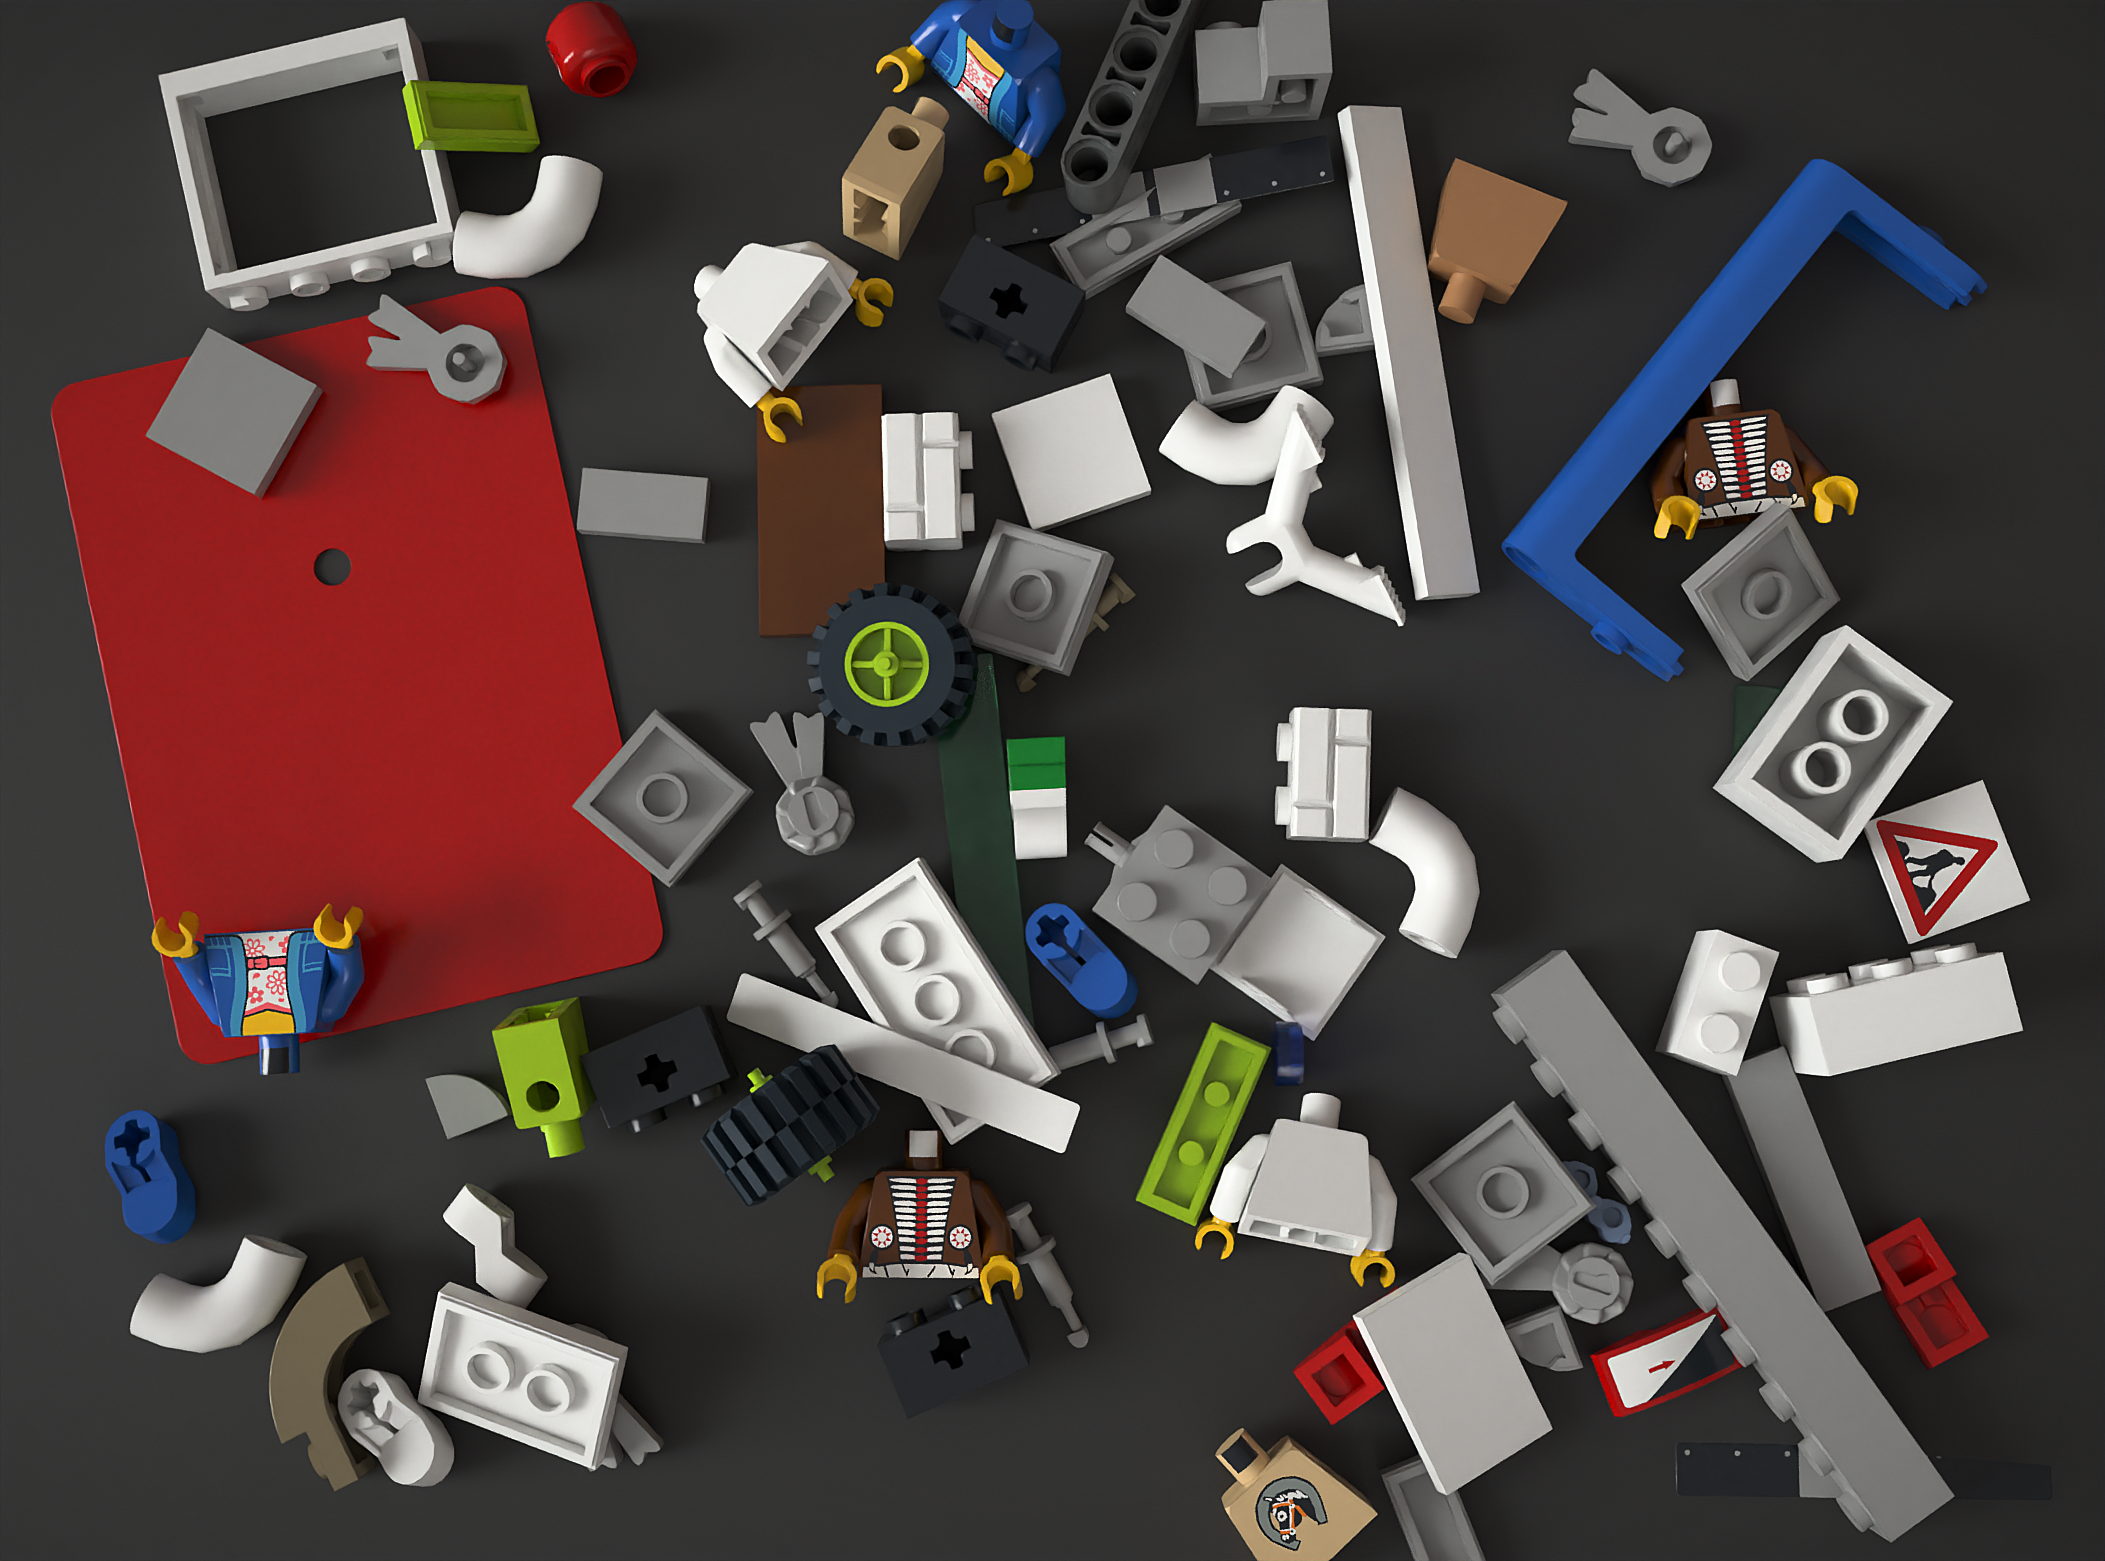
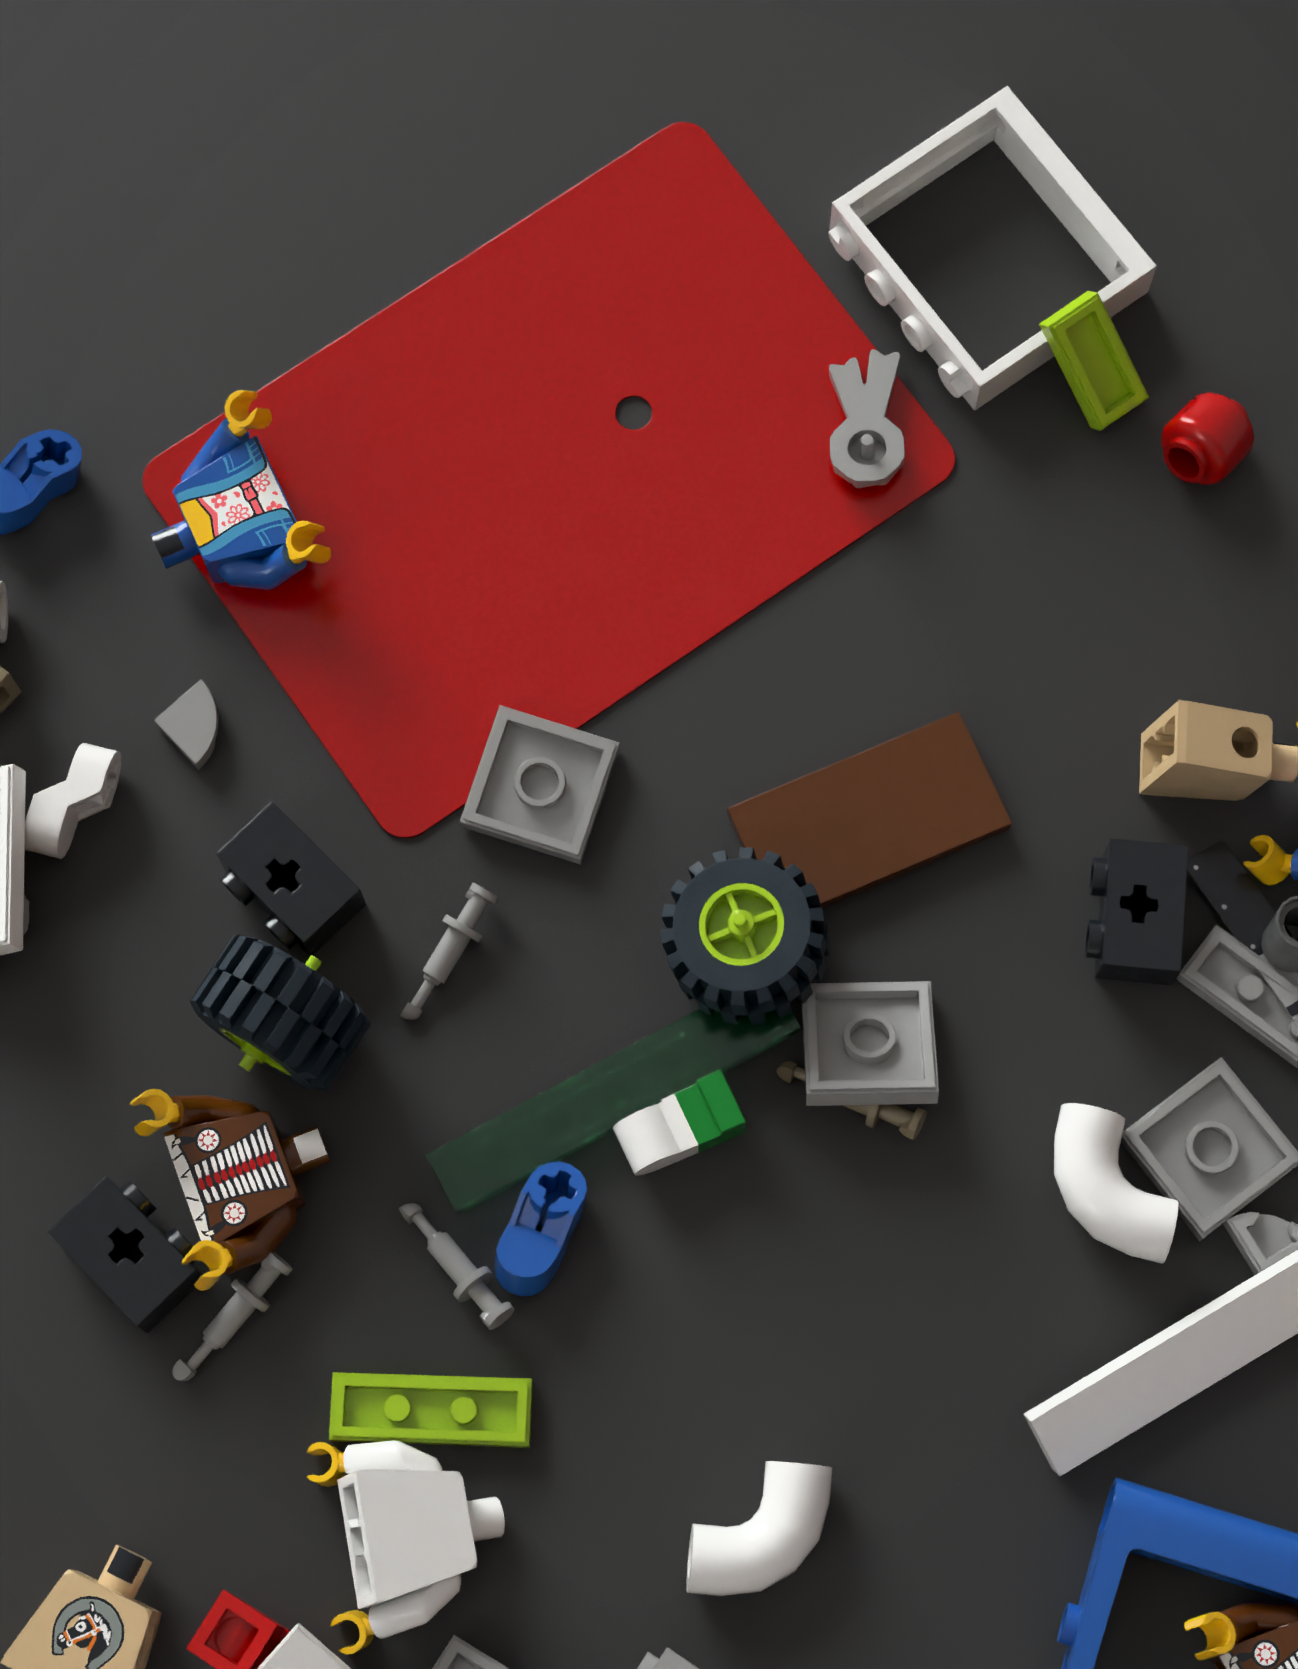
camera: 70 degrees right, 10 degrees down
(234, 412) = (735, 273): light grey tile -> none
(538, 233) = (1012, 461): white cylinder -> none
(541, 1047) = (246, 773): lime torso -> none
(643, 505) = (805, 657): light grey tile -> none
(774, 312) = (1033, 697): white torso -> none
(813, 810) = (584, 923): light grey piece -> none
(906, 1063) = (379, 1102): white sticker -> none
(924, 481) = (935, 899): white brick -> none
(933, 982) = (449, 1108): white tile -> none
(1071, 453) = (1023, 1026): white tile -> none
(1176, 891) = (642, 1291): light grey plate -> none
(1195, 316) = (1206, 1088): light grey tile -> none
(1284, 528) = (1034, 1257): white piece -> none
(1287, 1054) = (528, 1462): clear blue tile -> none
(1297, 952) = (632, 1438): white piece -> none
(1326, 774) = (814, 1392): white brick -> none

